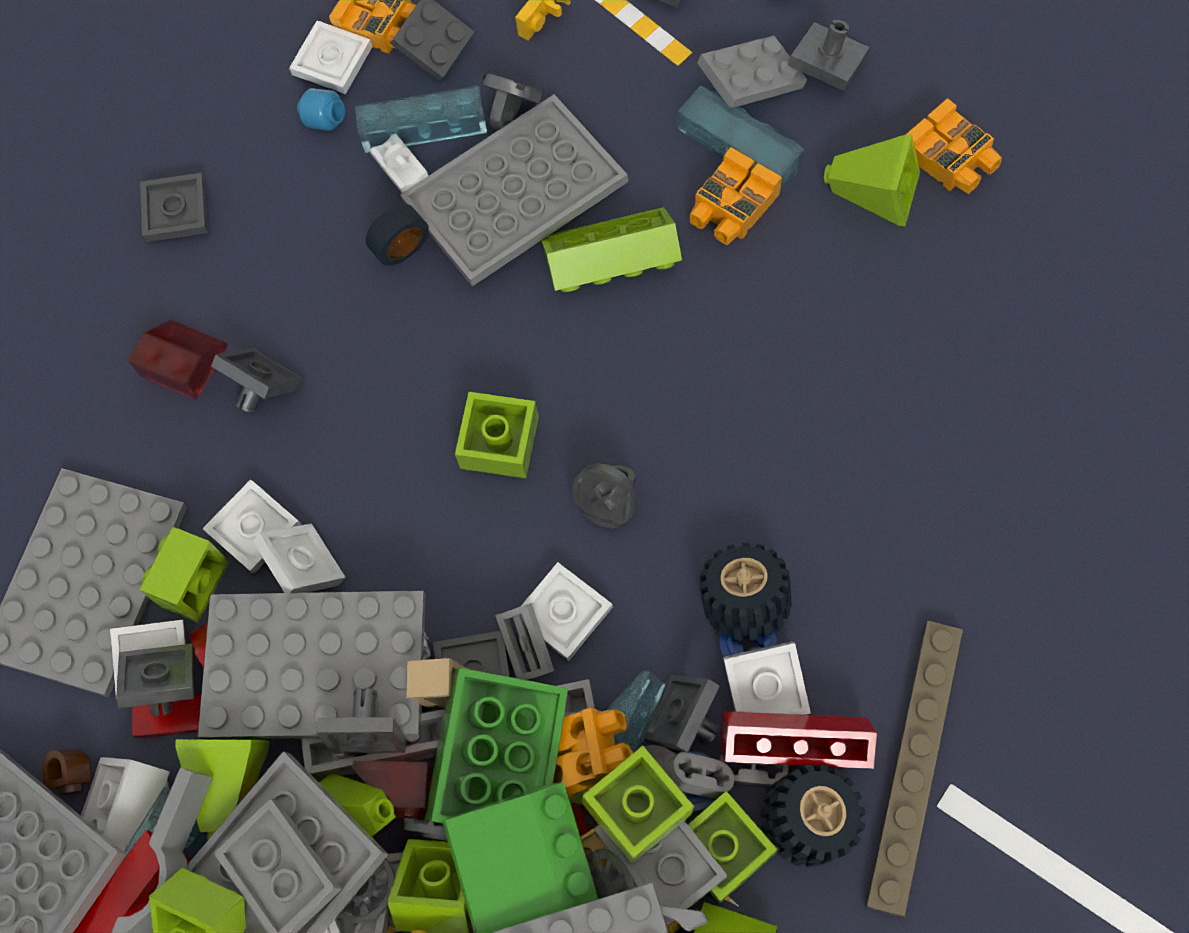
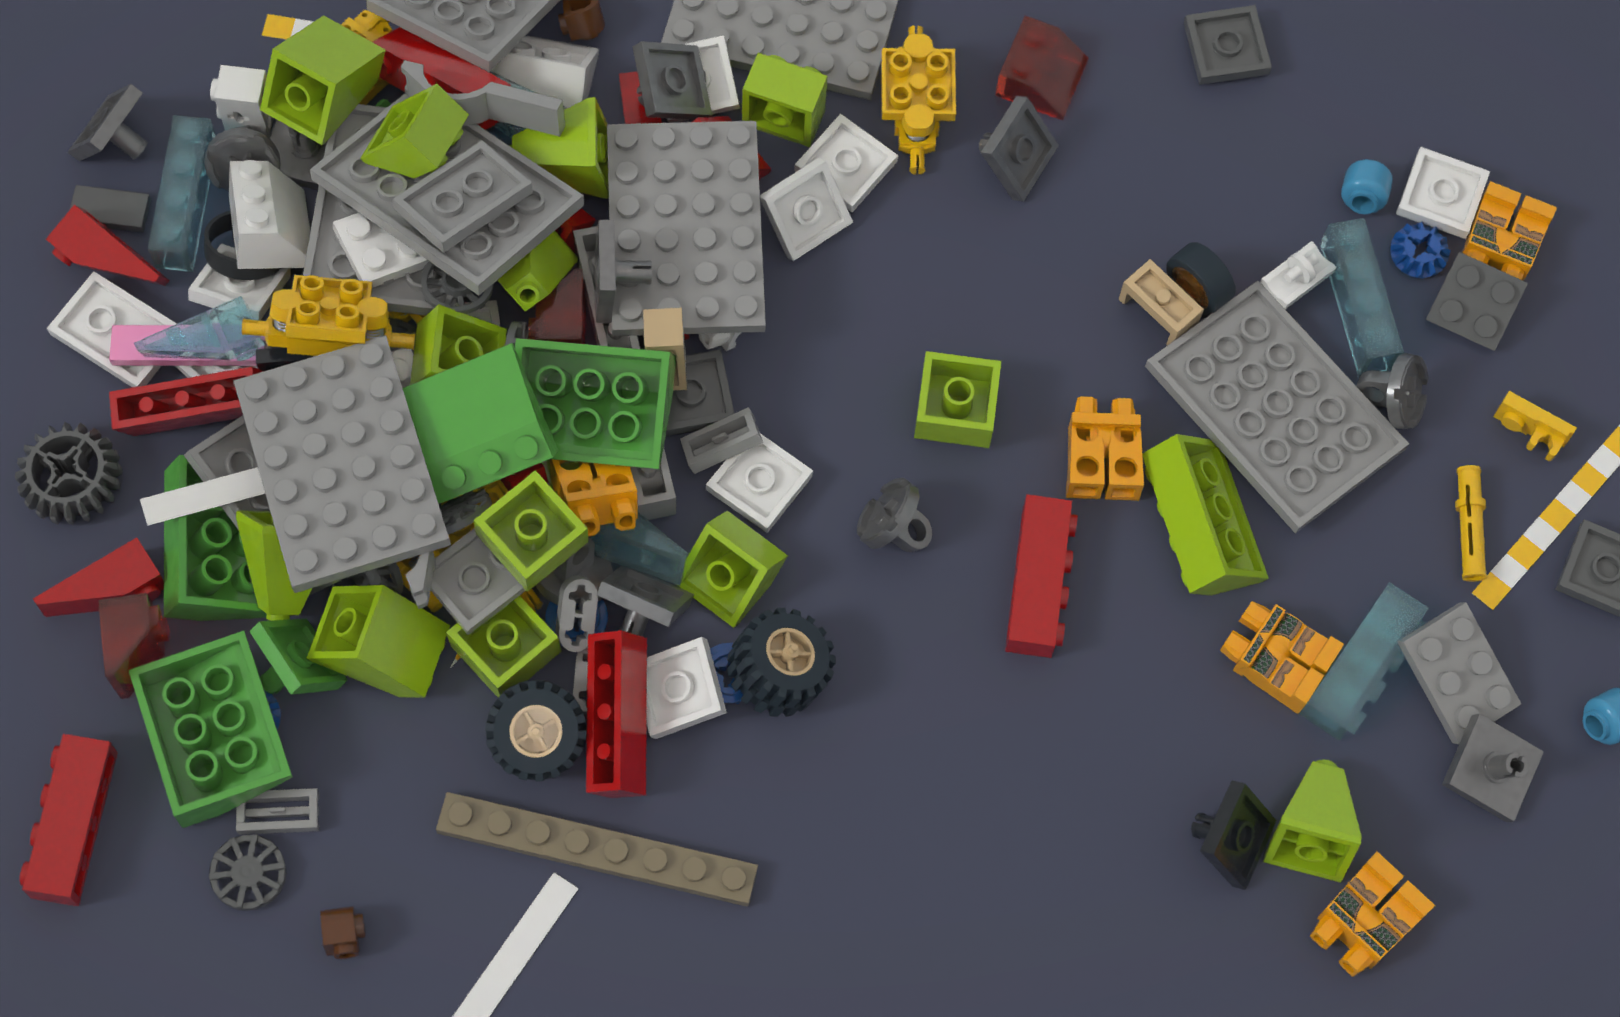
camera: 75 degrees right, 0 degrees up
(190, 457) = (918, 93): none -> yellow piece
(380, 89) = (1426, 264): none -> blue gear
(414, 266) = (1162, 299): none -> tan panel
(548, 320) = (1108, 437): none -> light orange hips
(623, 58) = (1471, 509): none -> yellow pin
(649, 635) = (730, 567): none -> lime slope
(661, 377) = (1039, 576): none -> red brick
(892, 237) = (1235, 834): none -> black tile

